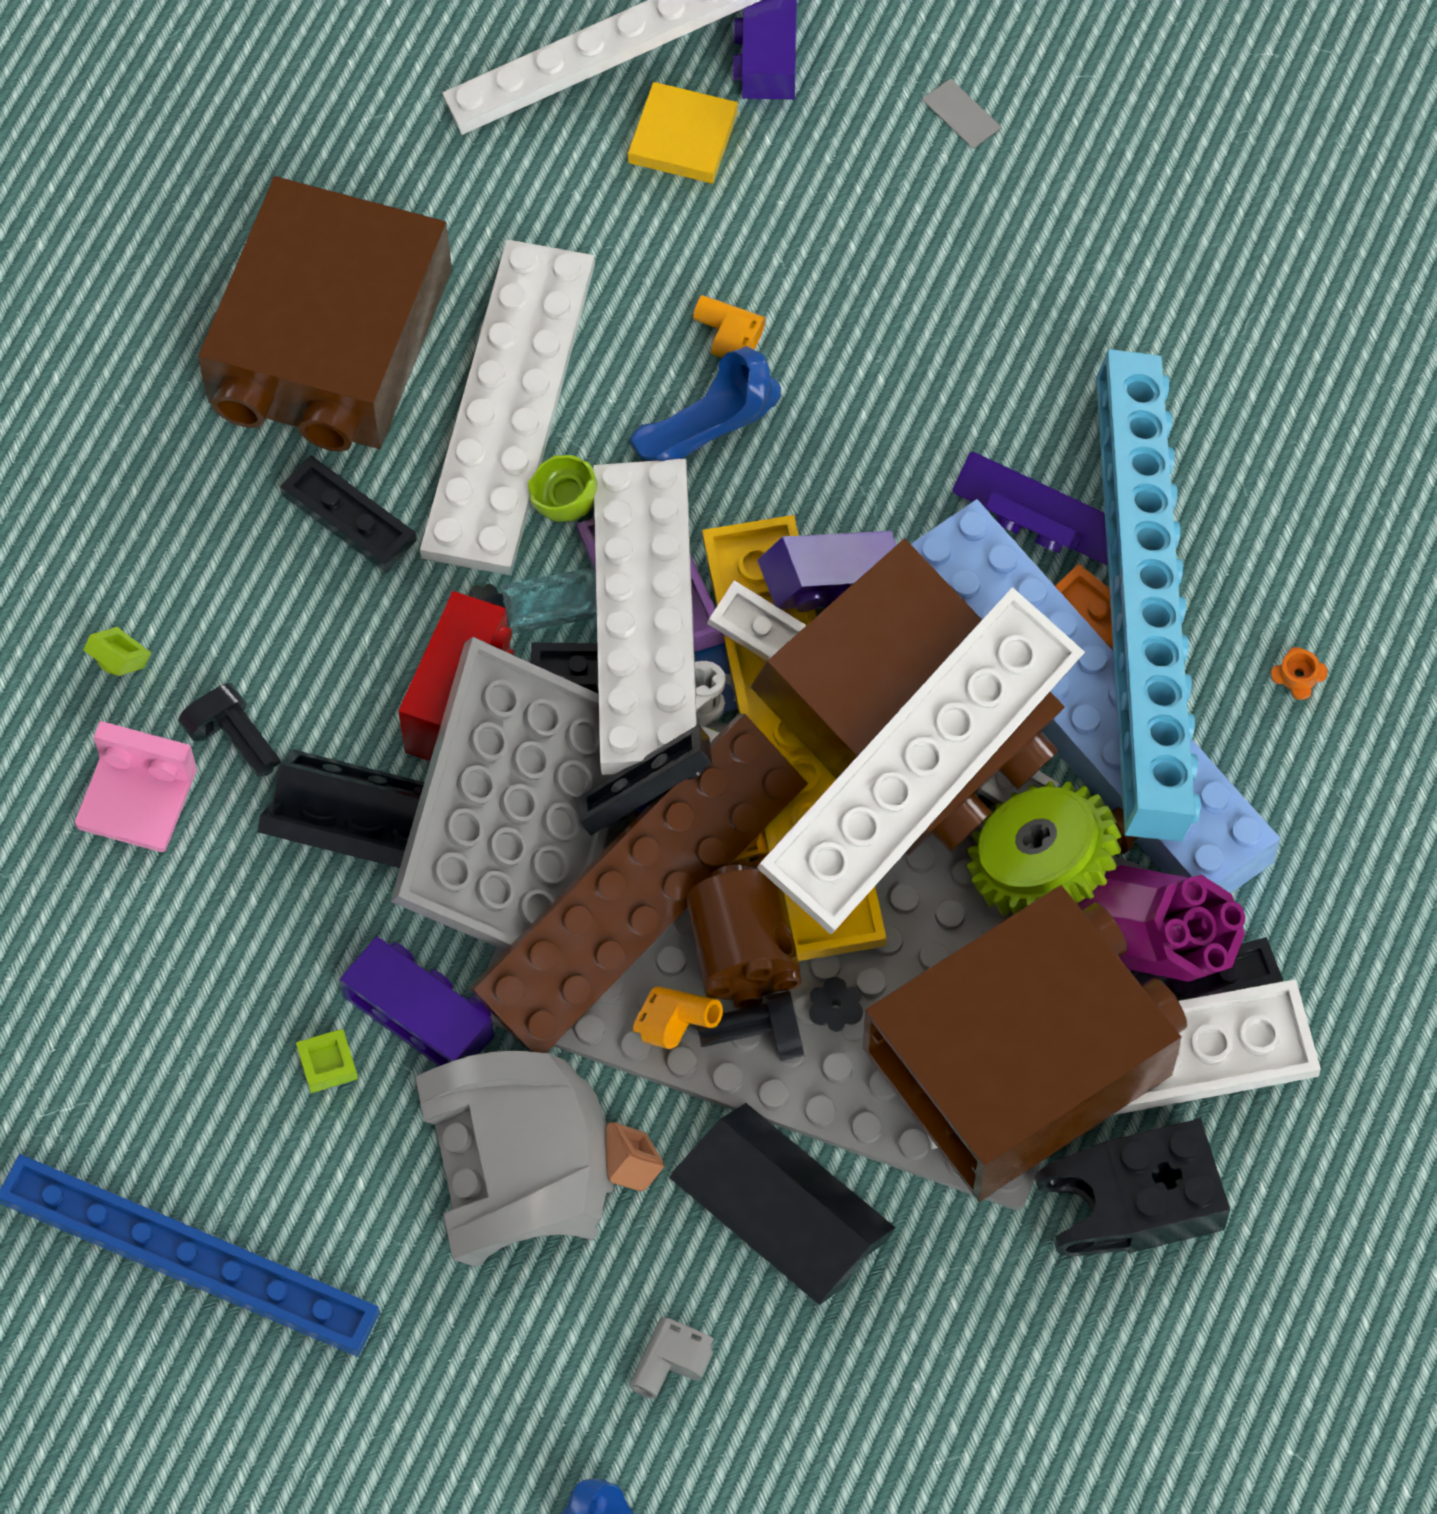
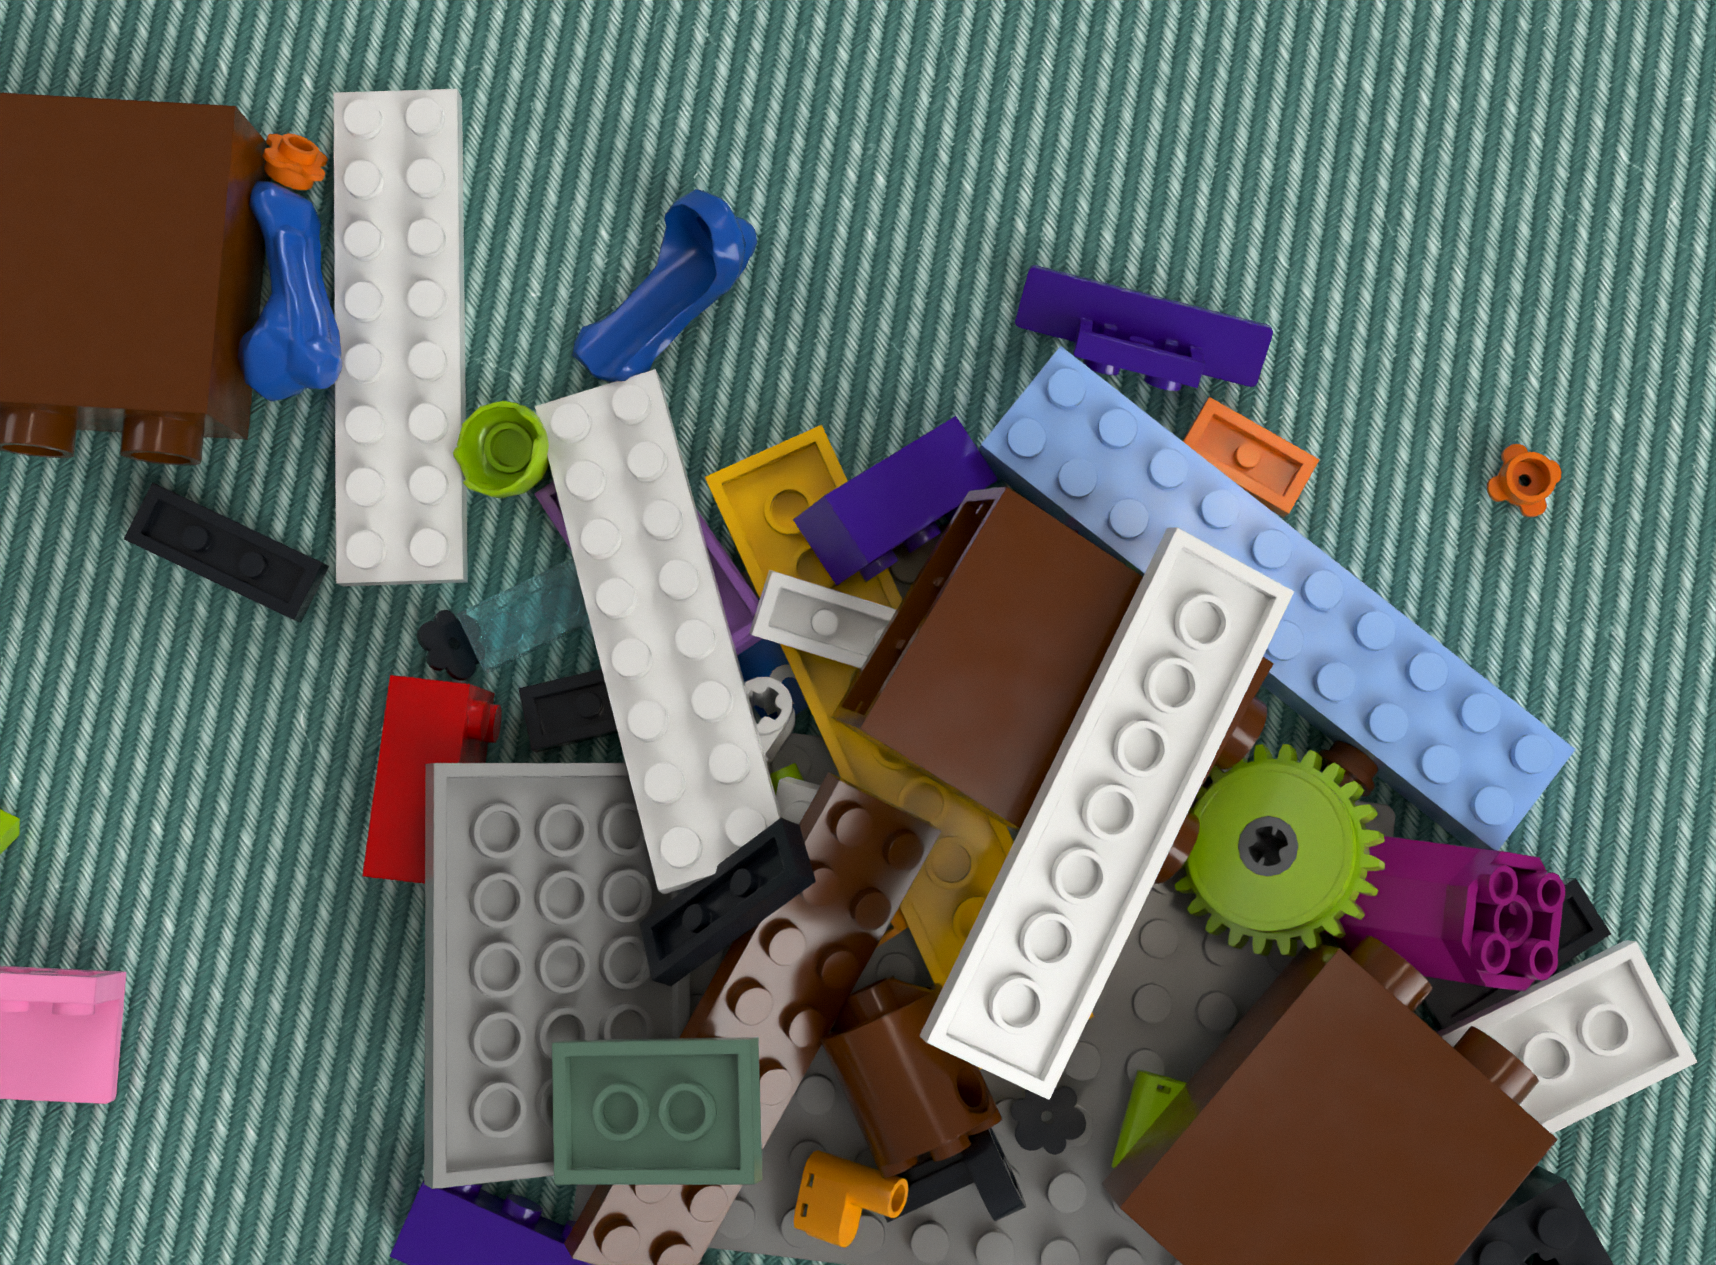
camera: 15 degrees left, 20 degrees up
(224, 710) = (140, 884): black piece -> none
(342, 808) = (328, 987): black slope -> none
(439, 381) = (296, 334): none -> blue hair
(467, 275) = (294, 161): none -> orange plate
(562, 892) = (657, 1111): none -> sand green plate
(735, 325) = (671, 149): light orange piece -> none
(1146, 598) = (1202, 122): medium azure brick -> none

